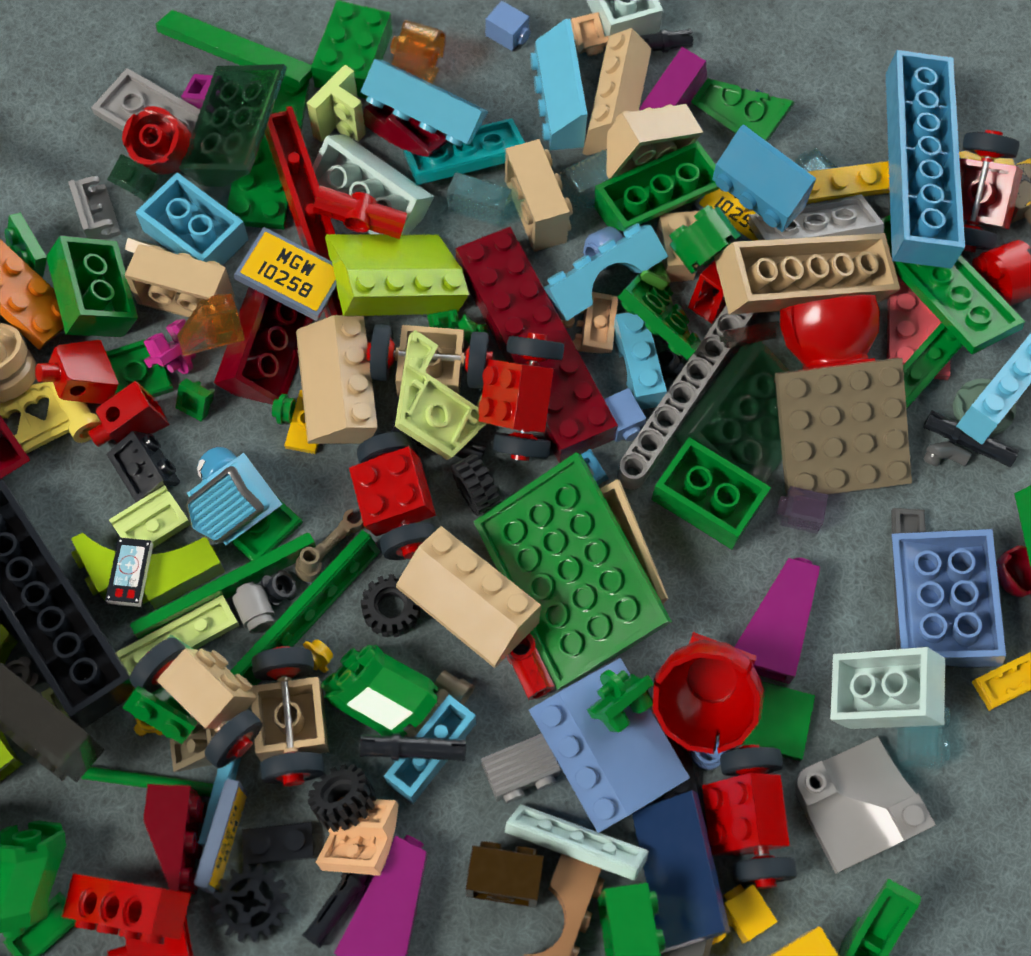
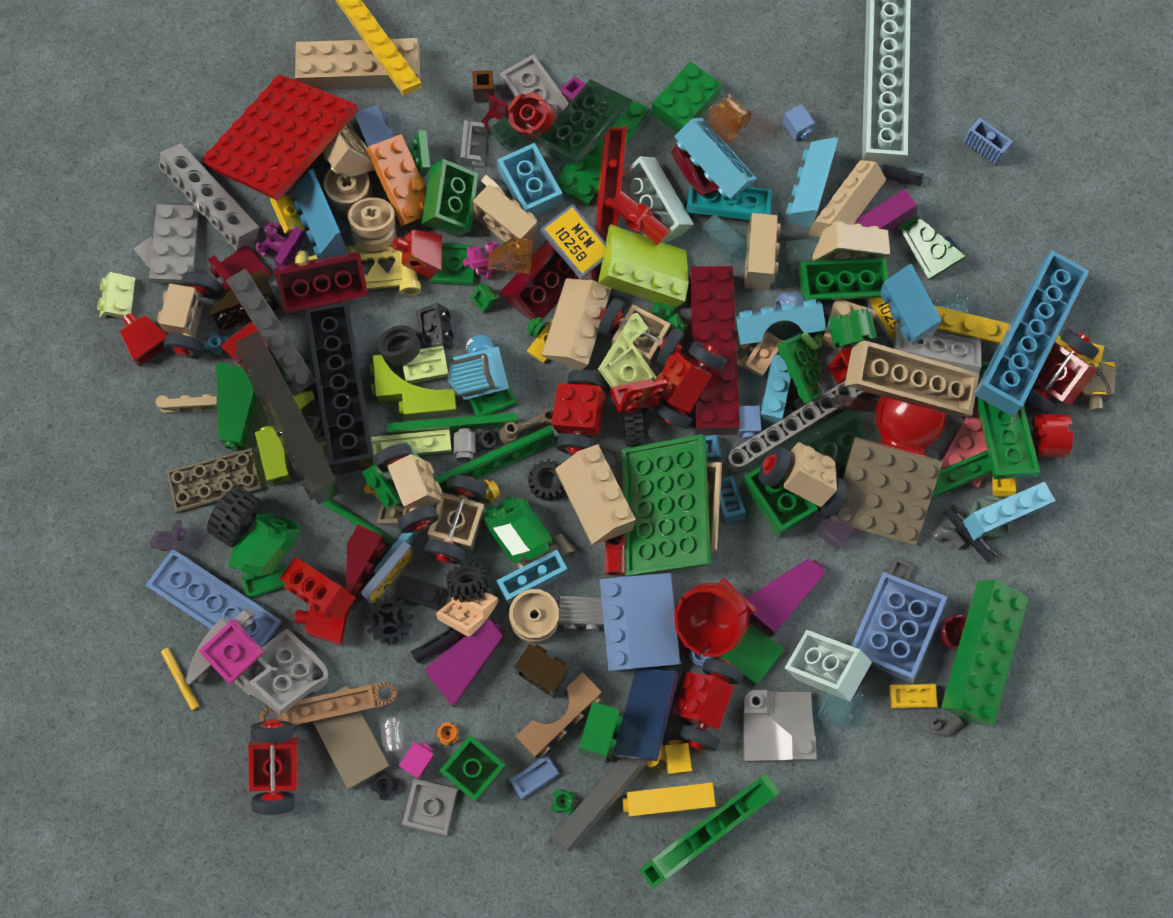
camera: 25 degrees right, 5 degrees up
(76, 129) = (482, 85): none -> reddish brown brick
(91, 498) = (404, 355): none -> black tyre
(107, 153) = (497, 110): none -> dark red bracket
(128, 411) = (438, 289): red torso -> none
(129, 572) = (399, 391): tile -> none
(230, 46) = (609, 67): green tile -> none
(337, 107) = (658, 137): yellowish green bracket -> none
(412, 747) = (516, 569): black pin -> none
(450, 783) = (540, 604): none -> tan wheel
(467, 436) = (638, 395): none -> red bracket
(577, 842) = (594, 670): light aqua tile -> none
(589, 34) = (851, 150): light nougat bracket -> none
(617, 694) = (657, 593): green hips -> none
(667, 536) = (735, 512): none -> dark azure slope
(736, 448) = (806, 475): none -> tan brick
(980, 363) = (1003, 487): none -> yellow plate

